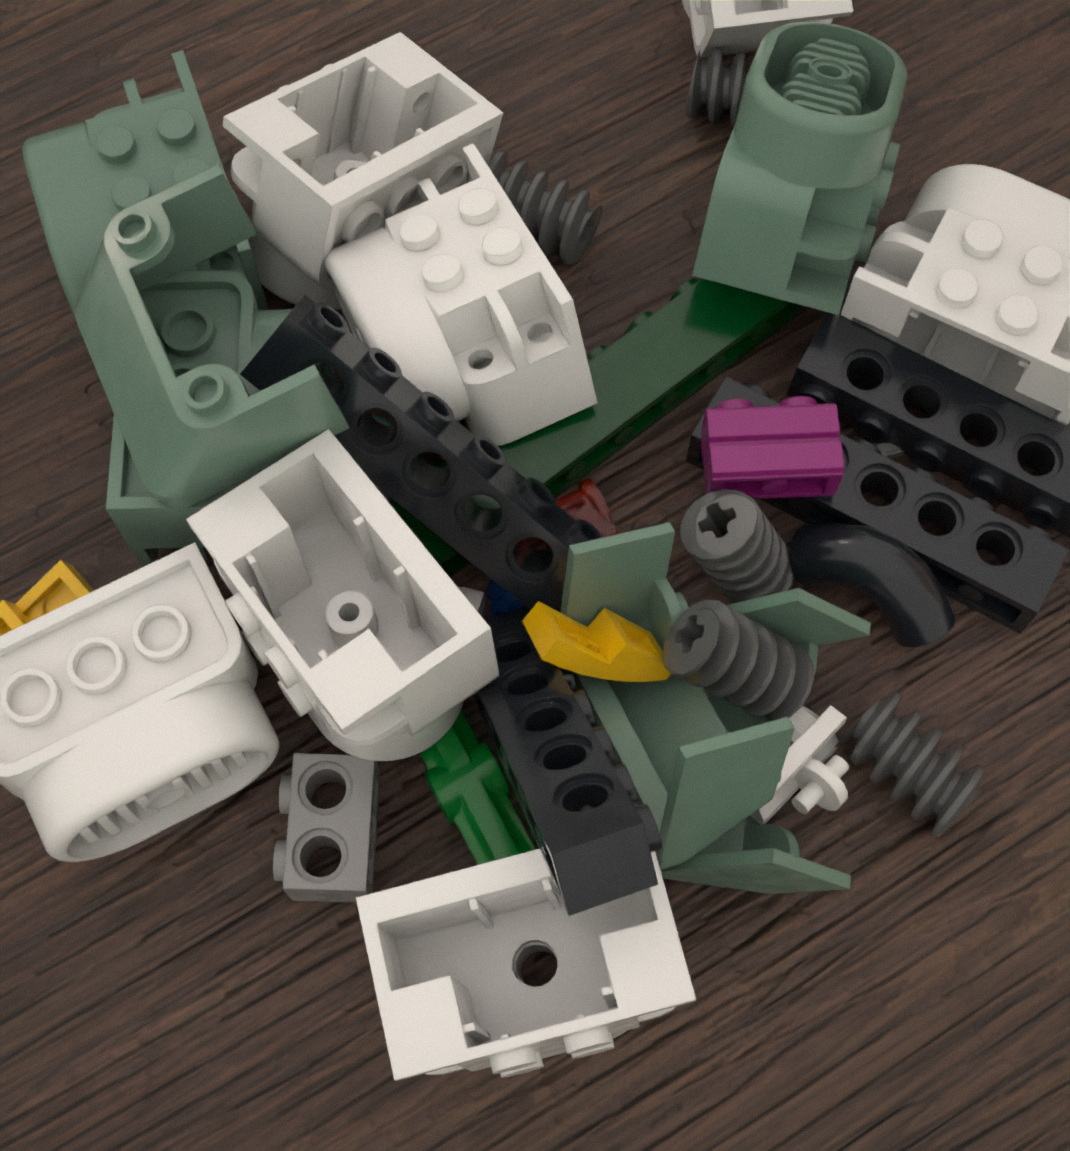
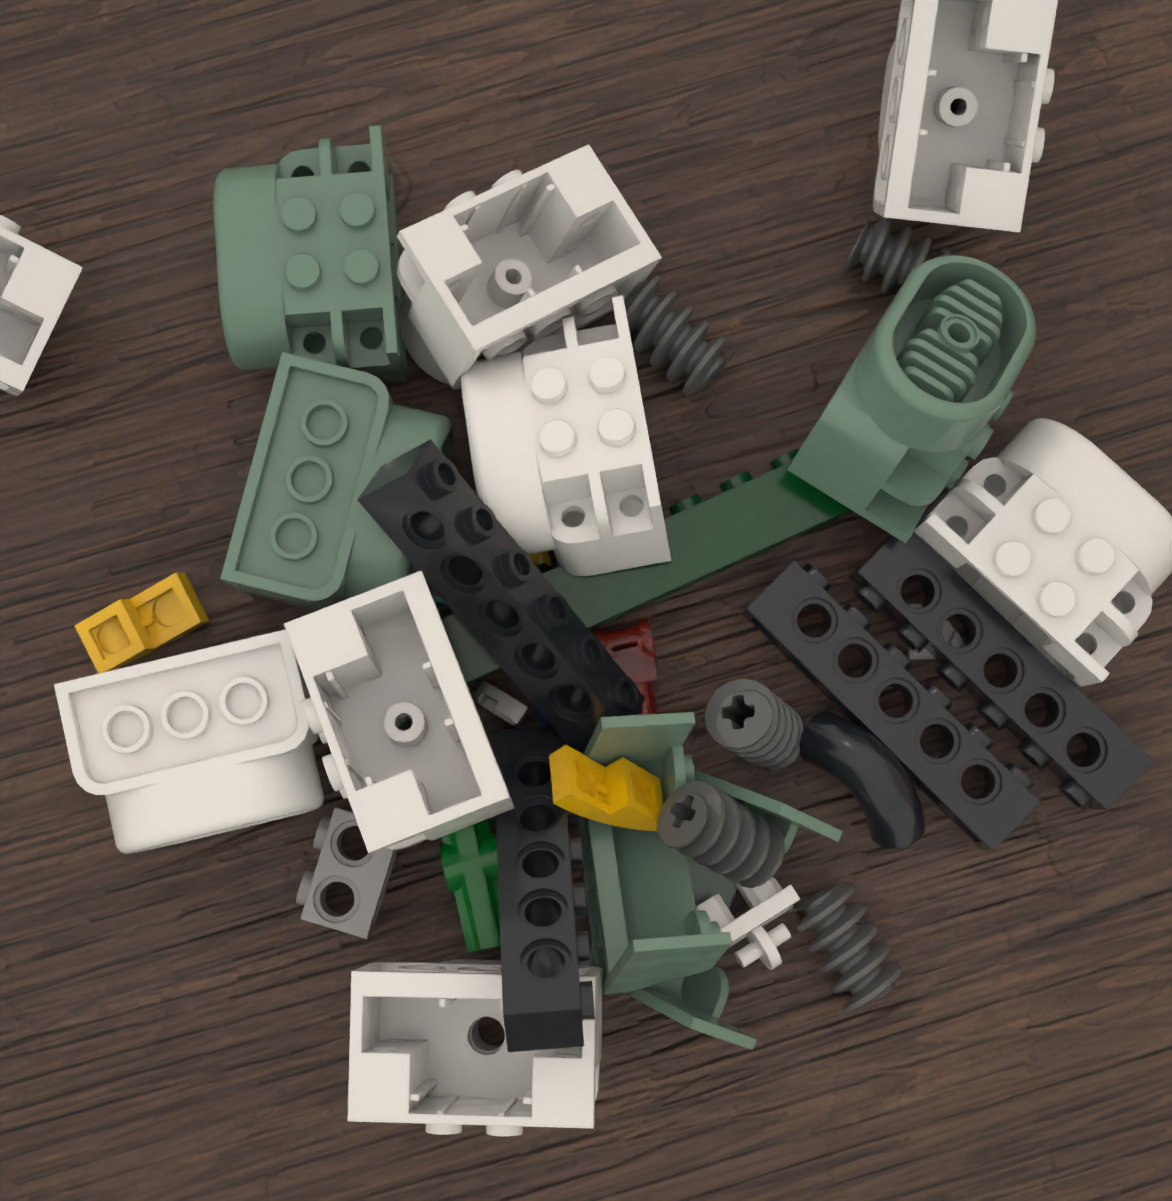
camera: 10 degrees right, 15 degrees up
(202, 427) = (291, 546): sand green windscreen -> none
(773, 448) = (808, 651): magenta brick -> none

